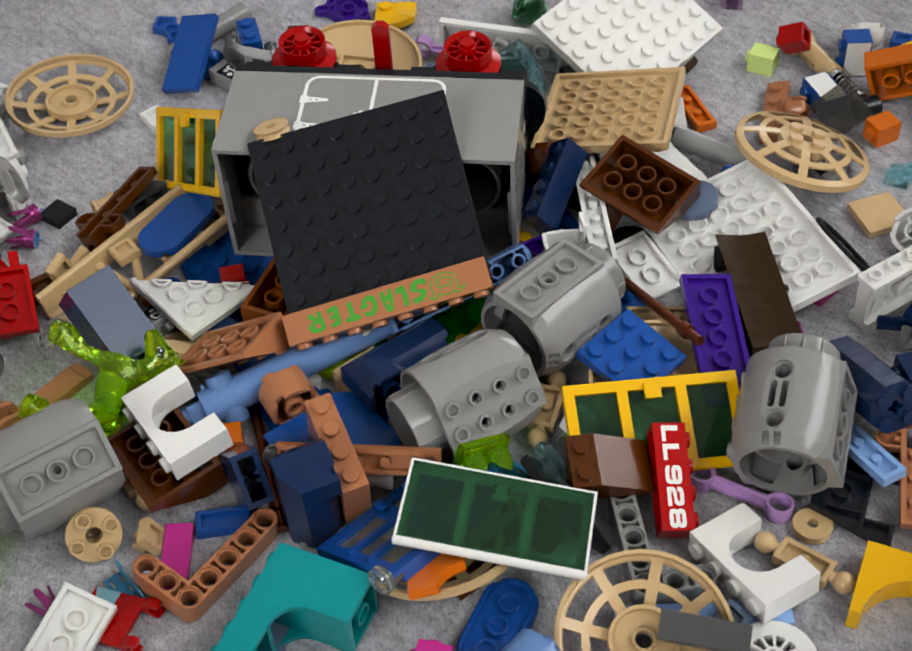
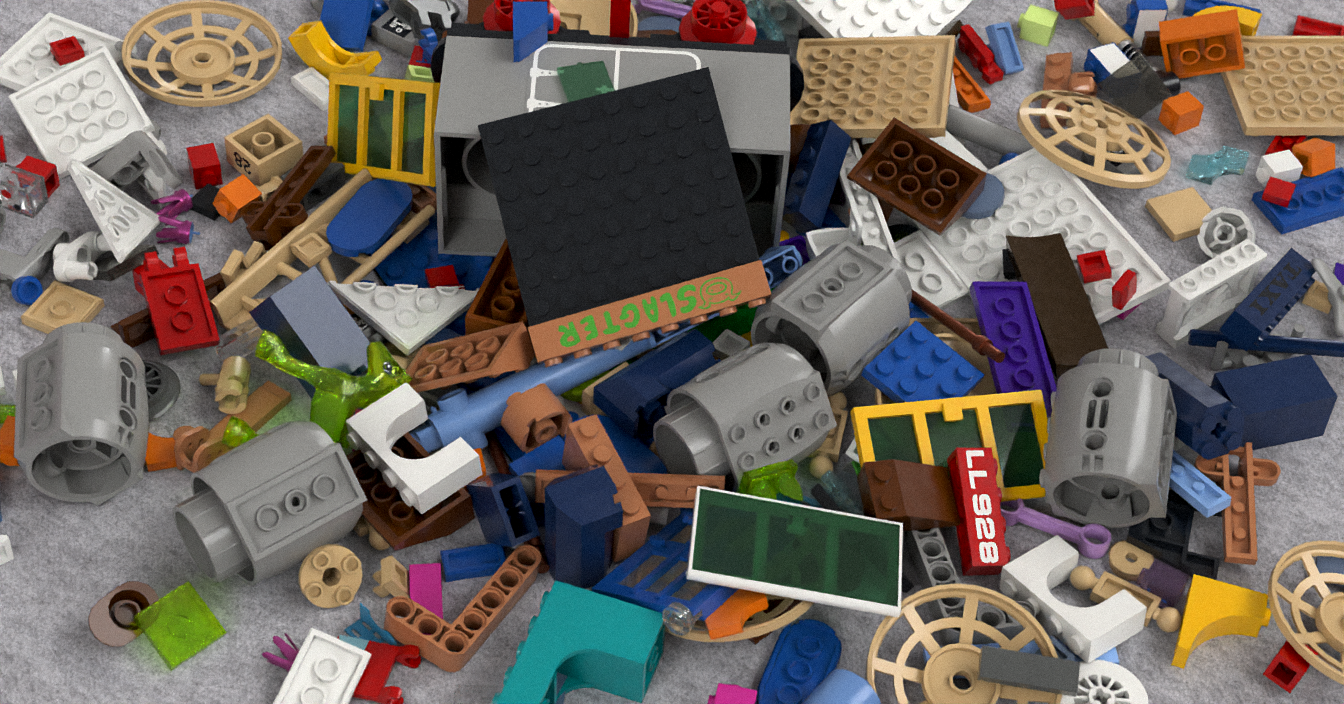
camera: 10 degrees left, 0 degrees up
(42, 366) = (231, 384): none -> tan piece
(56, 184) = (204, 165): none -> red brick
(73, 208) = (234, 197): none -> orange brick
(102, 170) = (263, 150): none -> tan brick
(166, 93) = (325, 56): none -> yellow arch
(271, 129) = (505, 108): tan piece -> none
(302, 62) = (530, 28): none -> blue slope
(344, 103) = (584, 80): none -> clear green piece
(464, 328) = (729, 344): none -> white plate
(710, 84) = (979, 54): none -> red hinge
(730, 79) = (1004, 48): none -> medium blue tile
(793, 260) = (1094, 266): none -> red tile
(817, 280) = (1124, 289): none -> red tile
(841, 548) = (1163, 582): none -> clear purple brick
(843, 244) = (1147, 249): black piece -> none
(858, 73) = (1151, 44): none -> reddish brown tile

